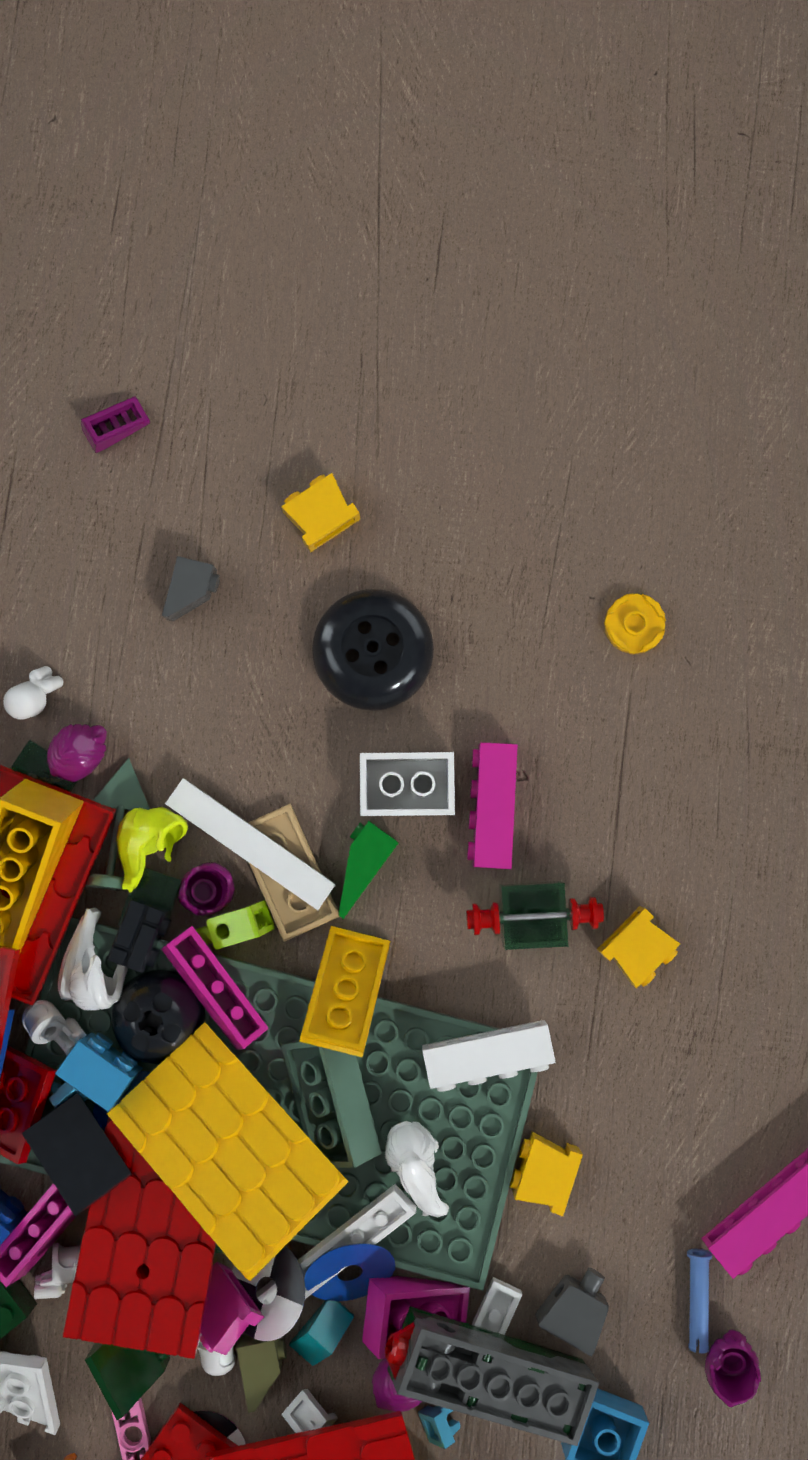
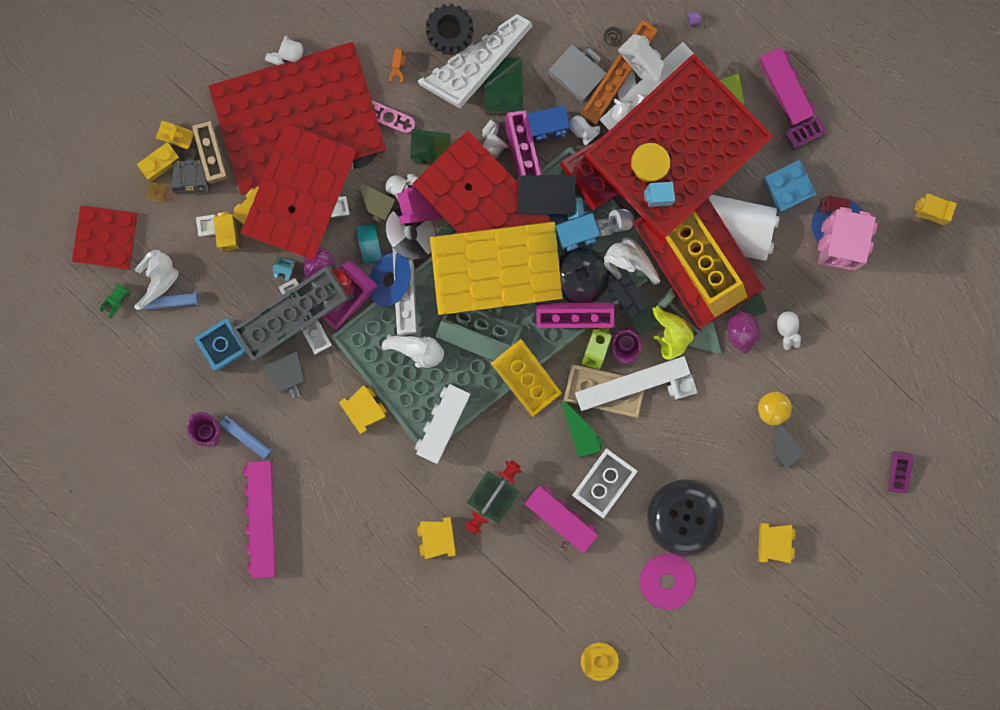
camera: 130 degrees right, 0 degrees up
(147, 637) = (774, 408): none -> yellow piece
(209, 776) = (682, 387): none -> white bracket
(463, 638) = (667, 598): none -> dark pink sticker

